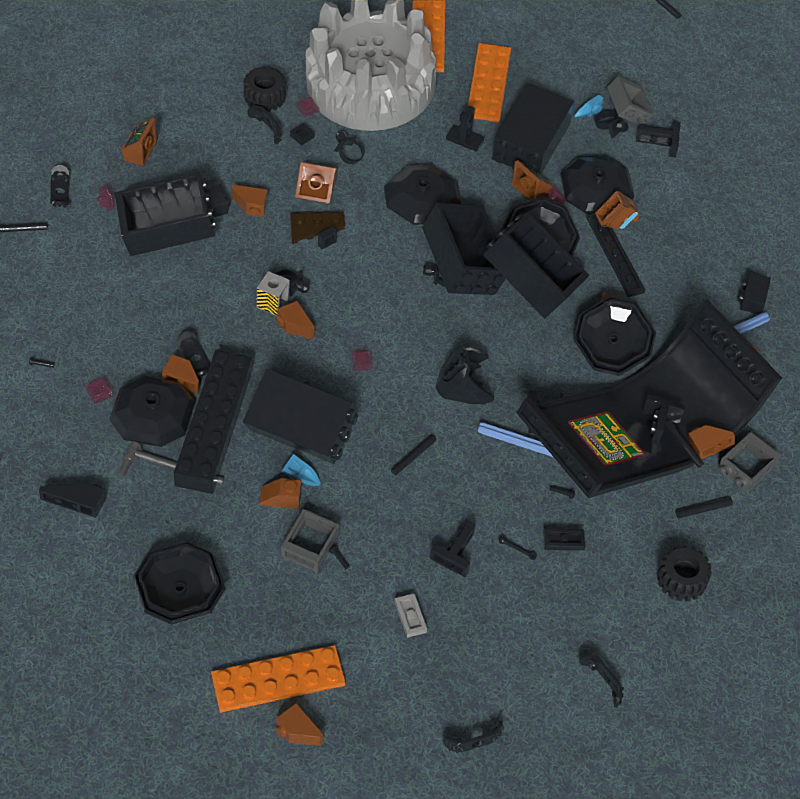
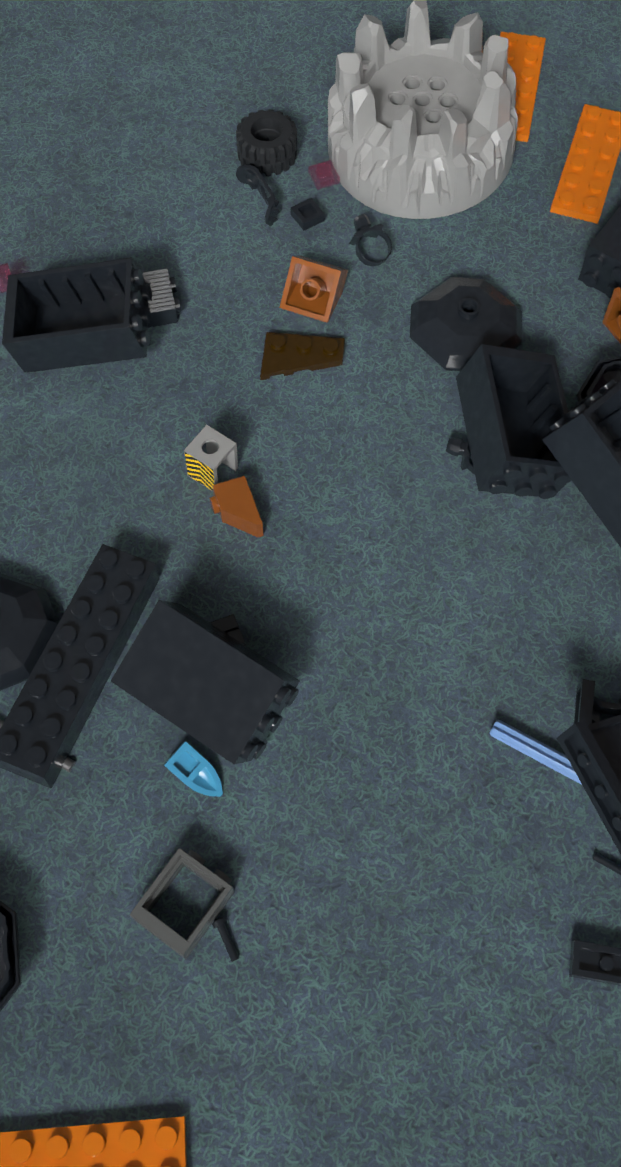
camera: 15 degrees right, 10 degrees up
(140, 142) = (76, 204): dark orange slope -> none
(181, 370) = (47, 570): dark orange slope -> none
(189, 346) = (74, 529): black piece -> none
(250, 199) = (213, 305): dark orange slope -> none
(281, 493) = (155, 807): dark orange slope -> none
(299, 283) = (254, 446): black piece -> none
(327, 237) = (312, 377): black plate -> none
(361, 360) = (327, 585): clear pink plate -> none
(410, 615) = (321, 1077): light grey plate -> none
(413, 455) = (379, 763): black bar -> none
(451, 557) = (417, 958): black bracket -> none
(455, 378) = (466, 637): black piece -> none
(463, 134) = (541, 237): black bracket -> none
(532, 555) = (546, 984): black hinge -> none

